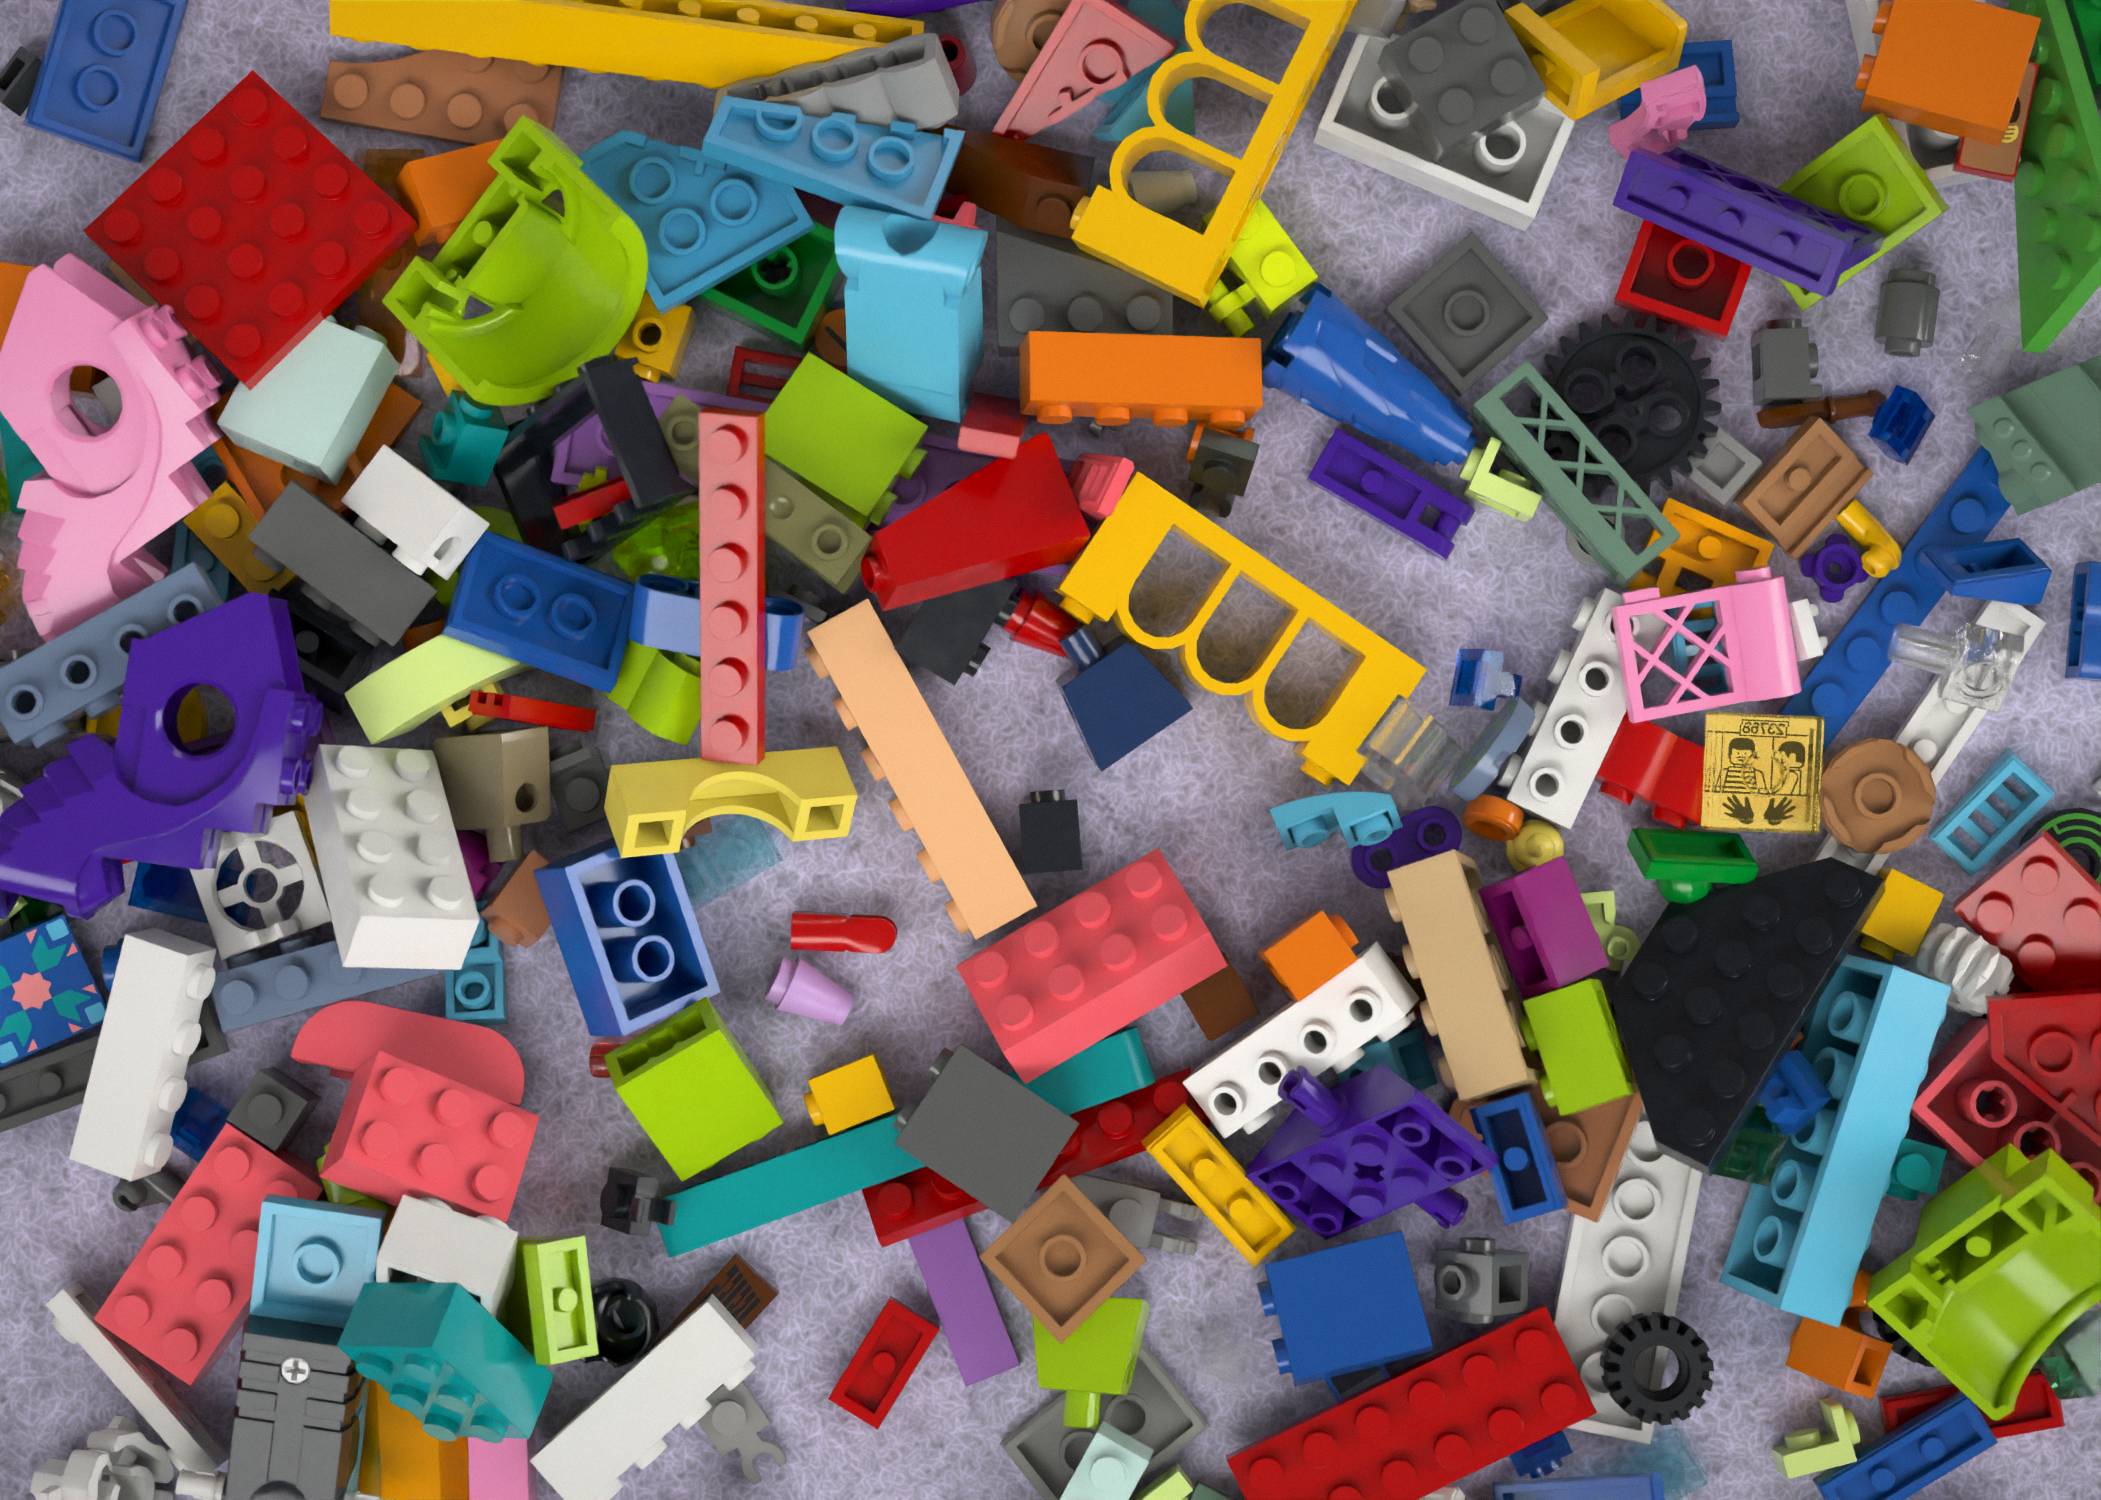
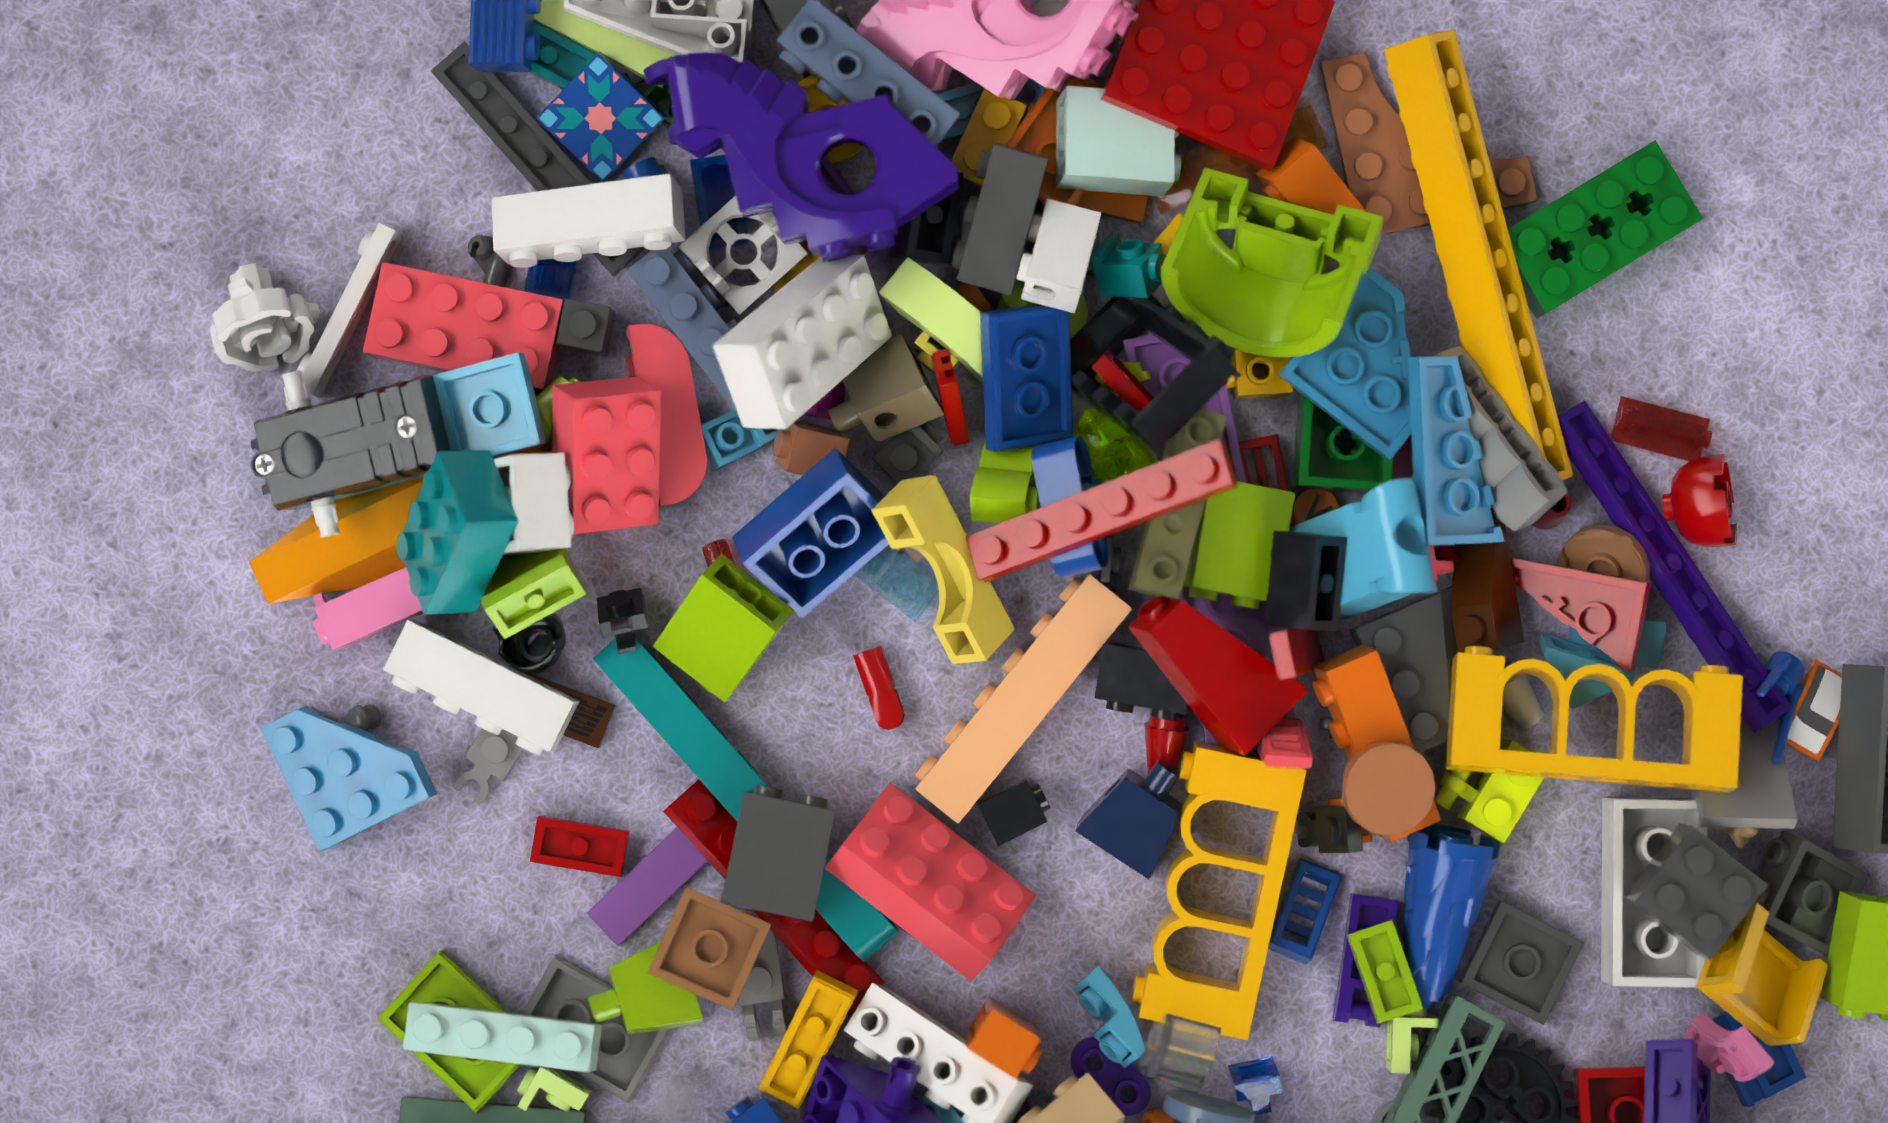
camera: 60 degrees right, 0 degrees up
(807, 992) = (826, 680): lavender cone -> none
(849, 1094) = (764, 741): yellow brick -> none
(913, 380) = (1306, 580): none -> black brick
(1196, 384) = (1388, 788): none -> nougat tile
(1220, 1002) = (941, 986): reddish brown panel -> none
(1340, 578) = (1289, 948): none -> blue slope
(1411, 476) = (1384, 972): none -> lime plate

